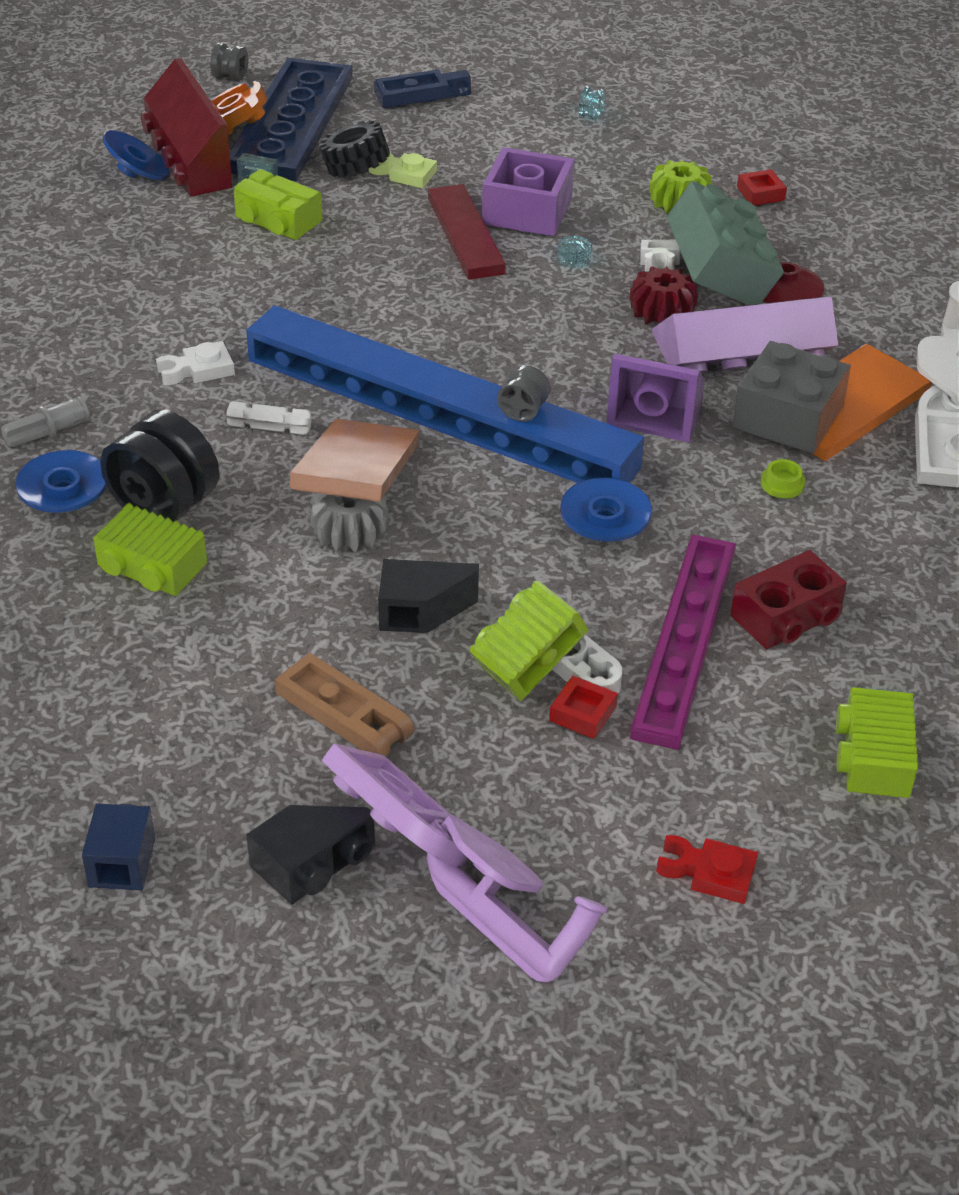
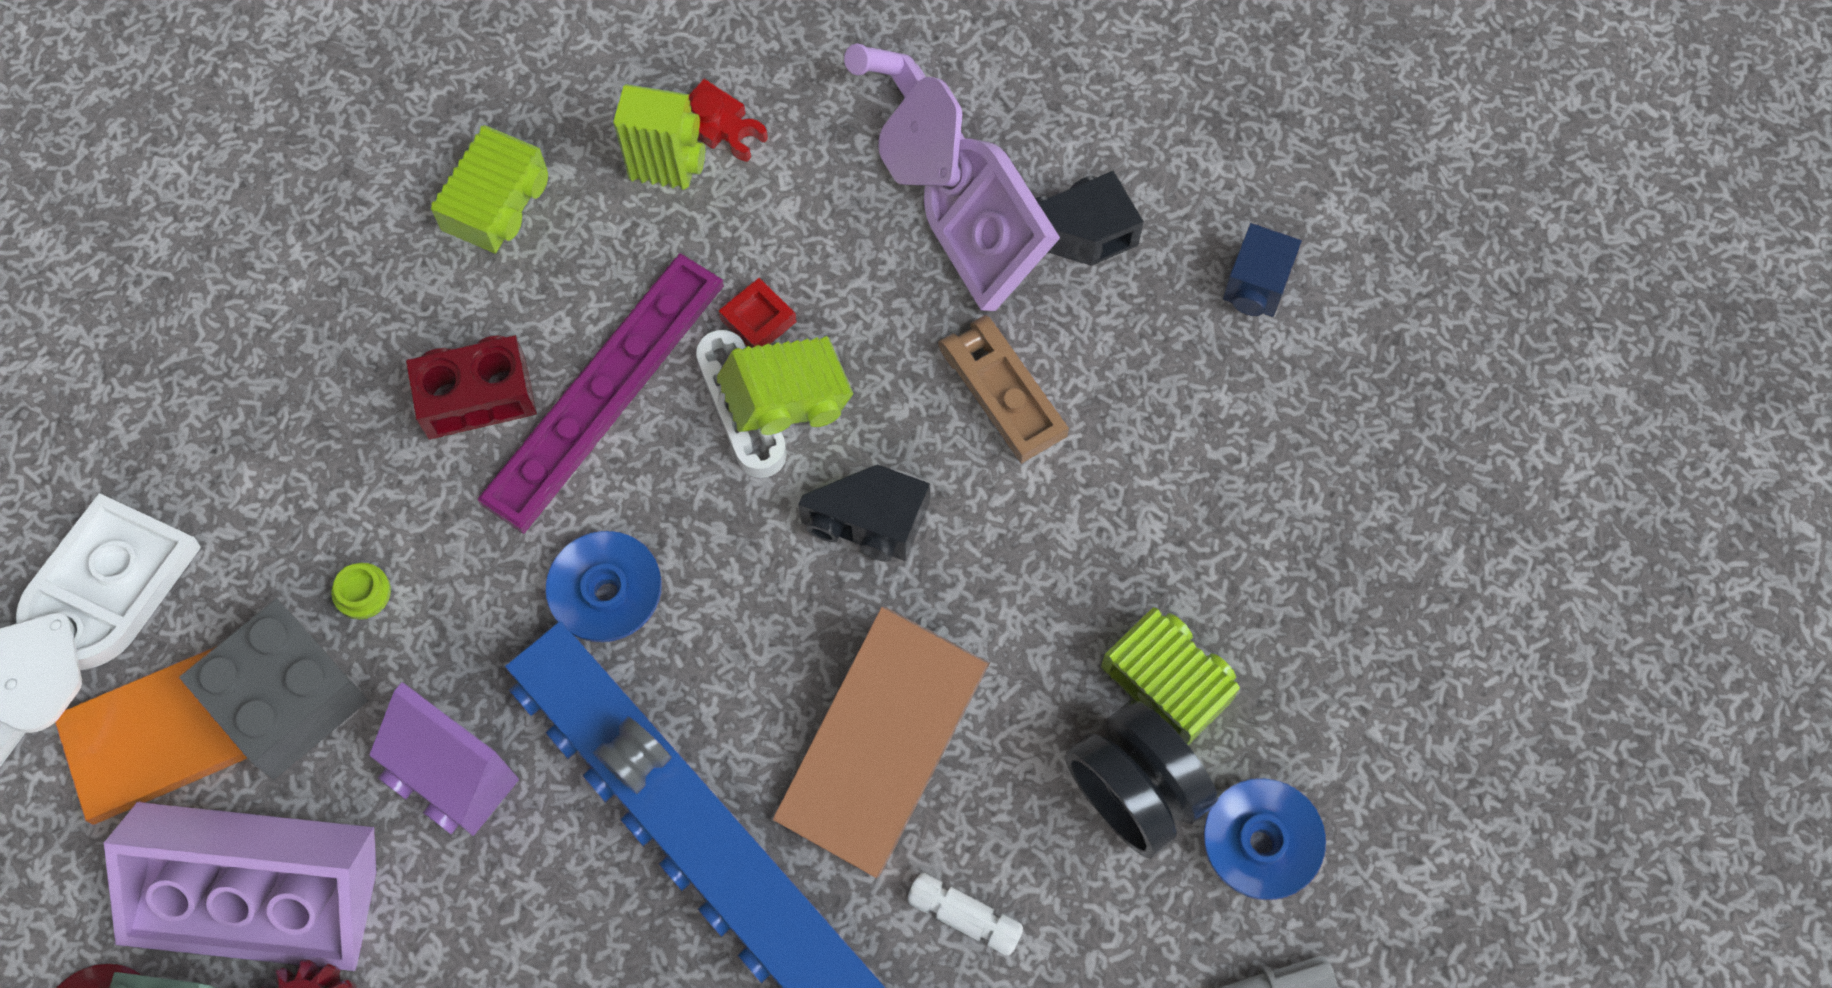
camera: 160 degrees left, 25 degrees up
(748, 790) = (658, 136): none -> lime brick

